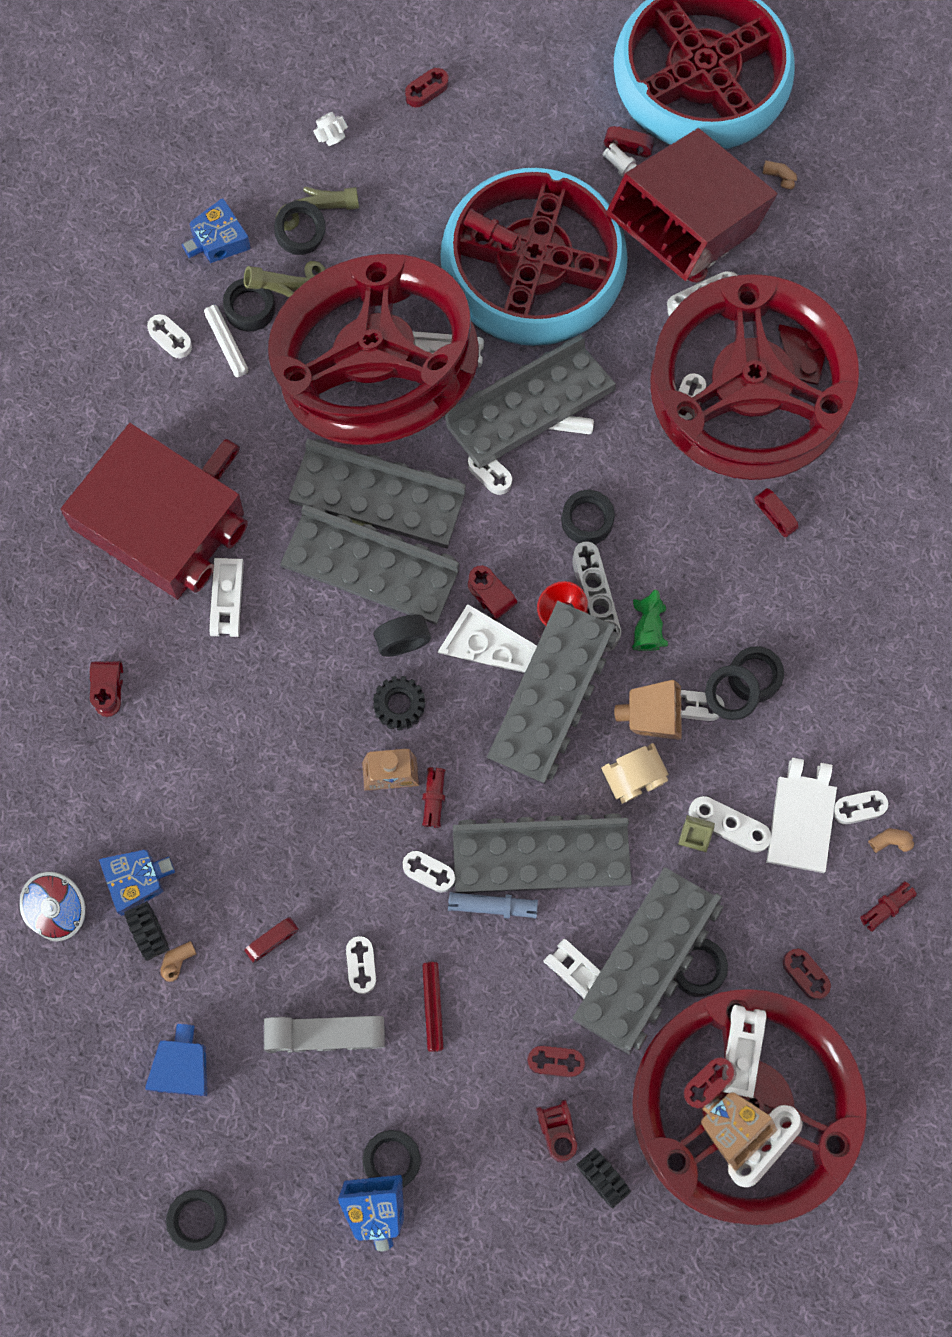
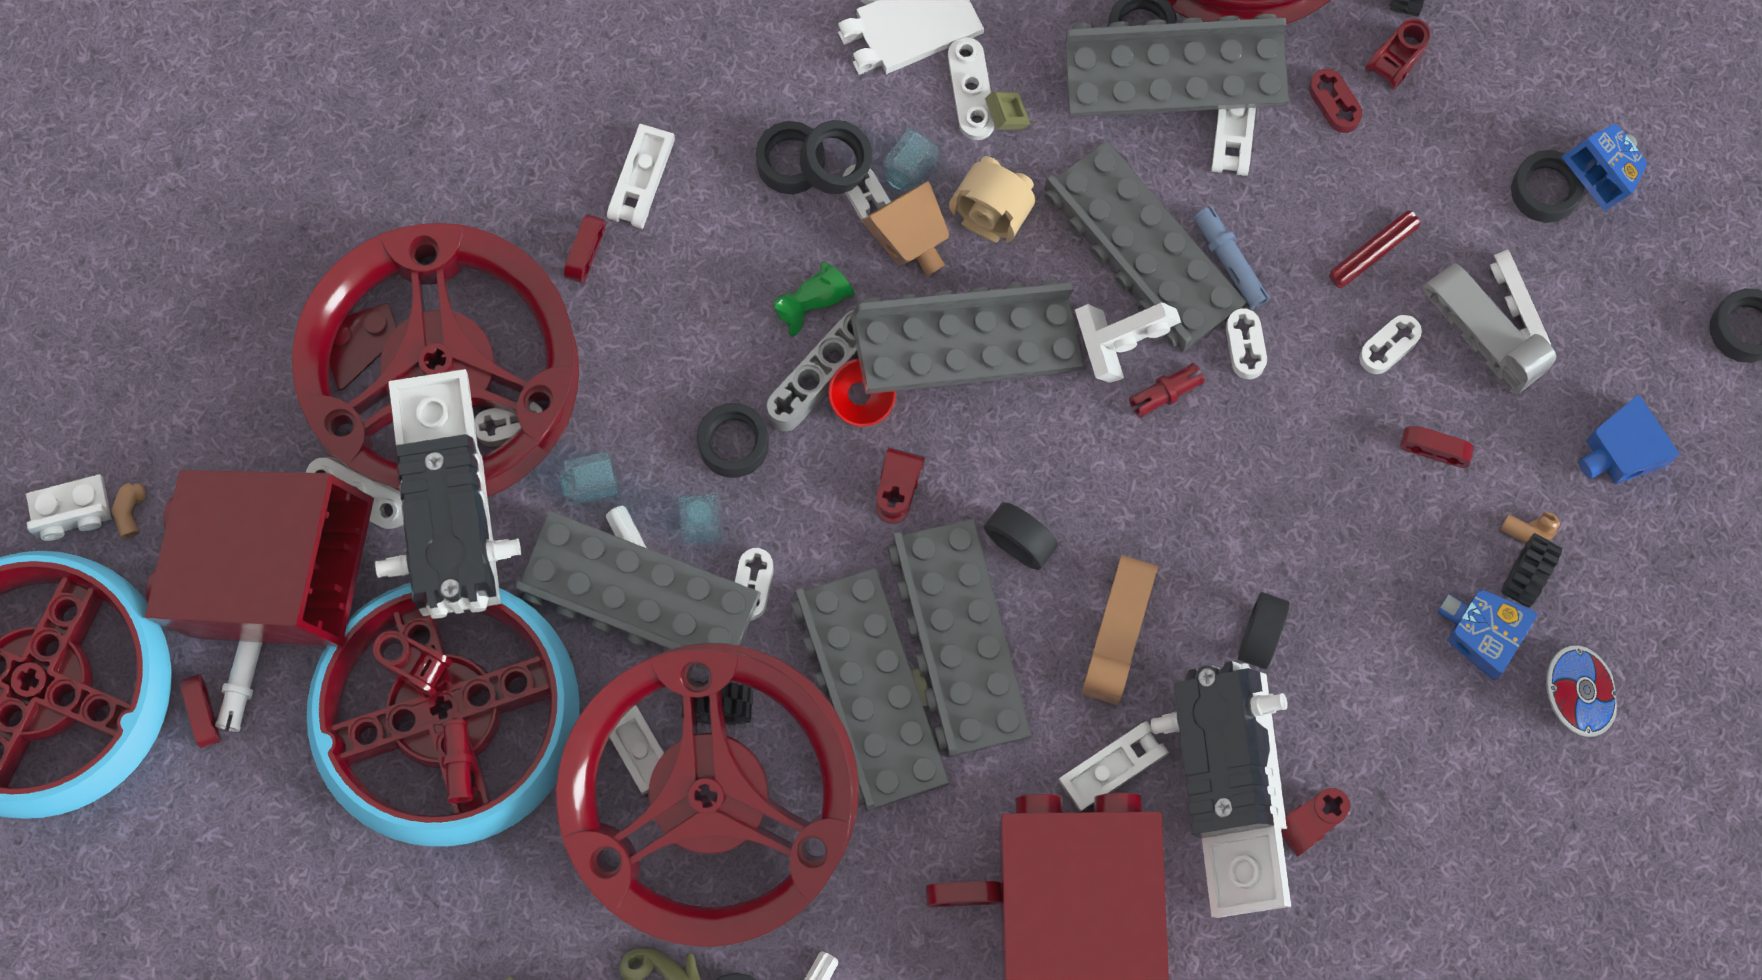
camera: 120 degrees left, 0 degrees up
(161, 648) = (1233, 784): none -> piece
(236, 736) = (1263, 630): none -> black tyre
(302, 654) = (1119, 630): none -> medium nougat beam
(325, 1073) = (1519, 300): none -> white plate
(390, 769) = (1176, 448): medium nougat torso -> none
(399, 686) = (1101, 474): black tyre -> none
(487, 642) = (954, 451): white wing -> none
(489, 778) = (1105, 340): none -> white bracket
(549, 464) = (700, 519): none -> clear light blue brick
(564, 241) = (417, 665): none -> dark red piece
(620, 421) = (589, 478): none -> clear light blue brick
(651, 302) = (443, 498): none -> black piece
(702, 745) = (910, 160): none -> clear light blue brick
(804, 144) = (68, 506): none -> white bracket
(805, 577) = (641, 175): none -> white plate

